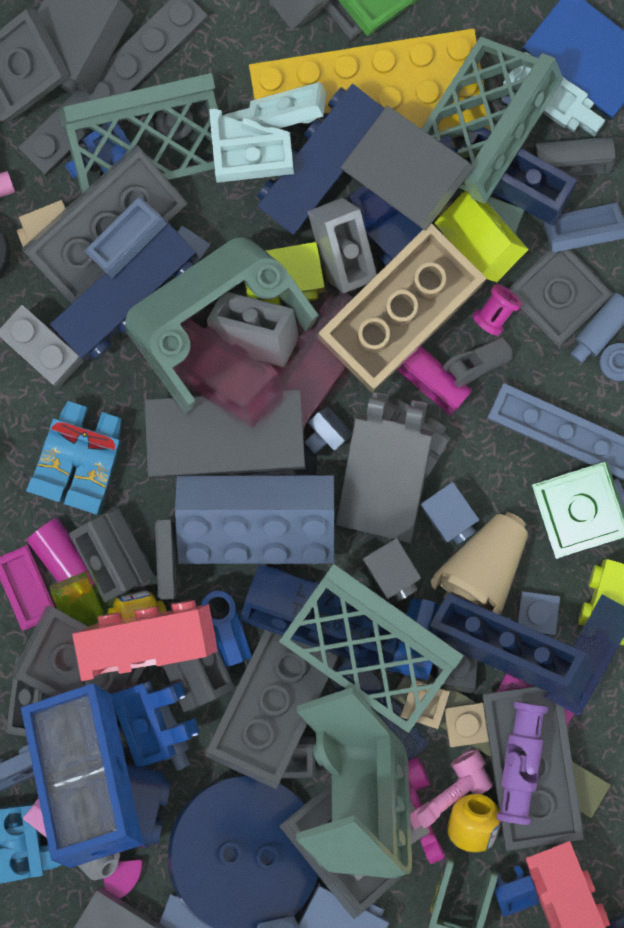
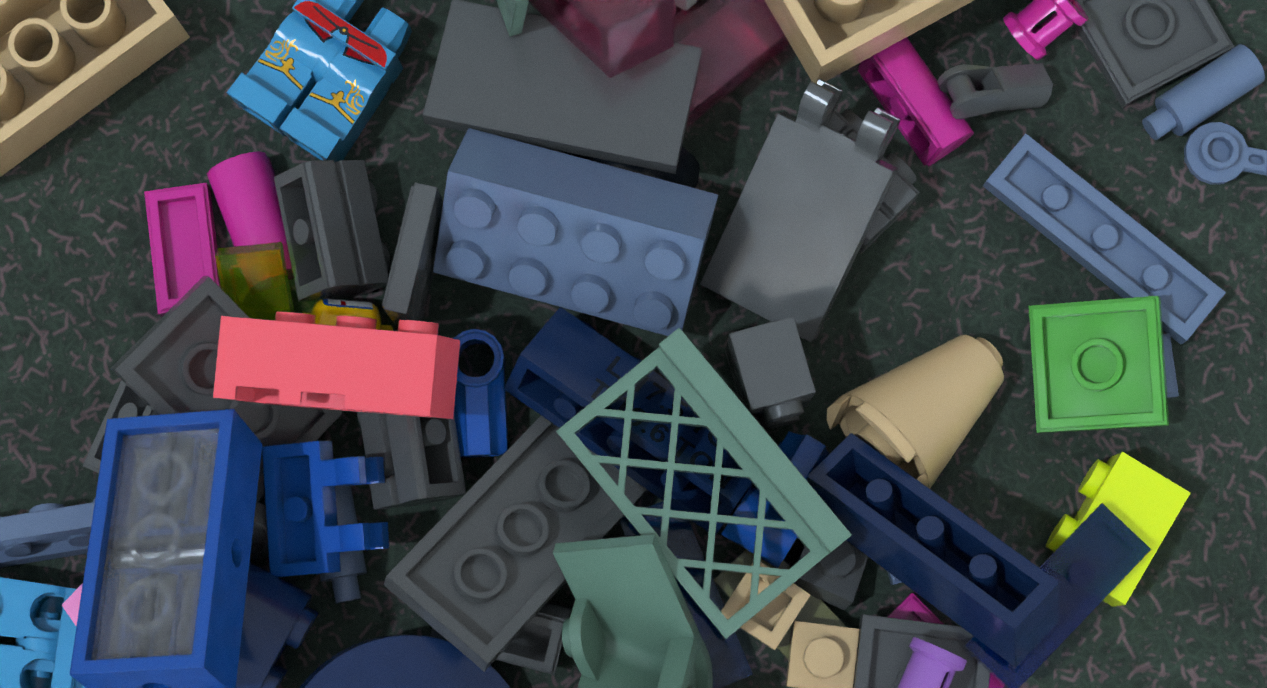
camera: 15 degrees right, 5 degrees down
(328, 430) = (728, 134): sand blue tile -> none
(450, 514) = (886, 315): sand blue brick -> none
(538, 612) = (990, 504): sand blue plate -> none

